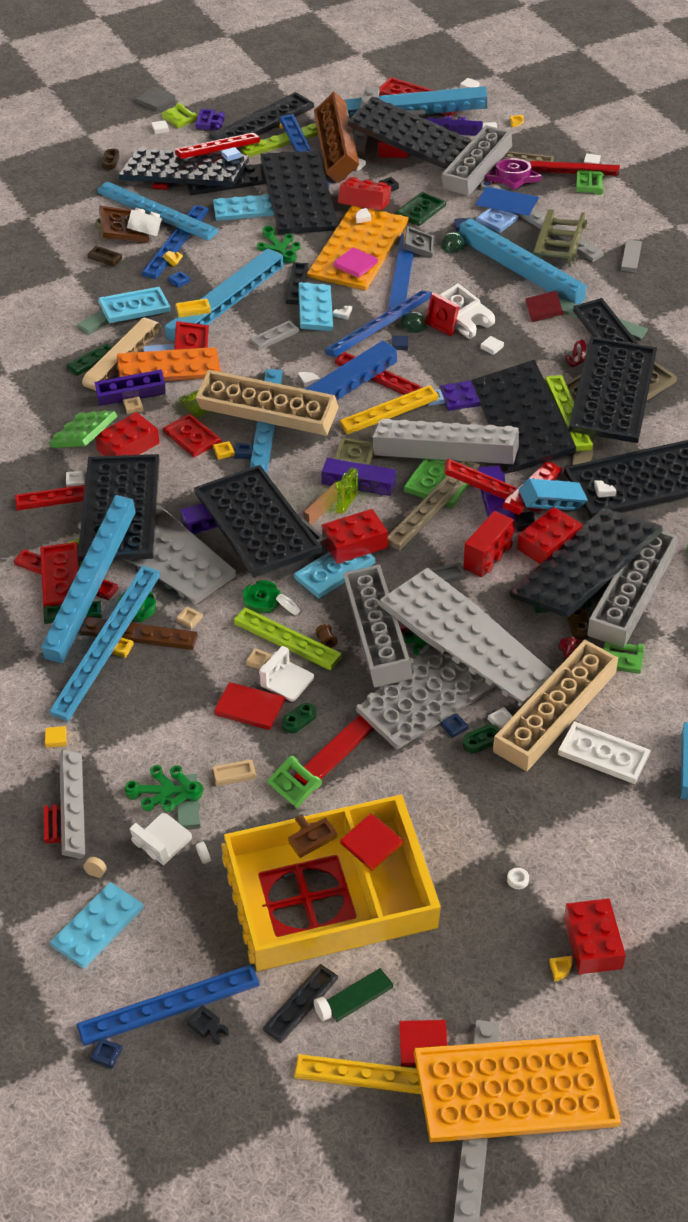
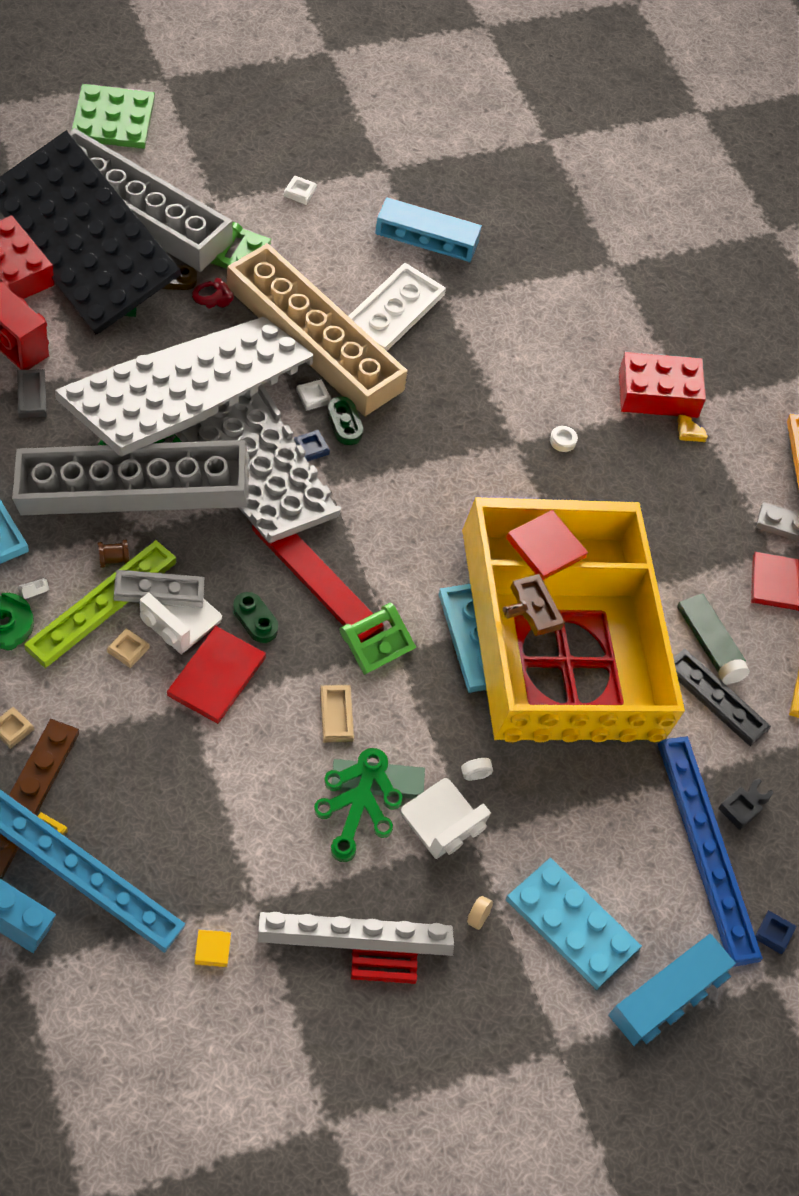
camera: 90 degrees left, 10 degrees up
(51, 984) = (671, 990): none -> dark azure brick
(301, 660) = (166, 588): none -> light grey tile

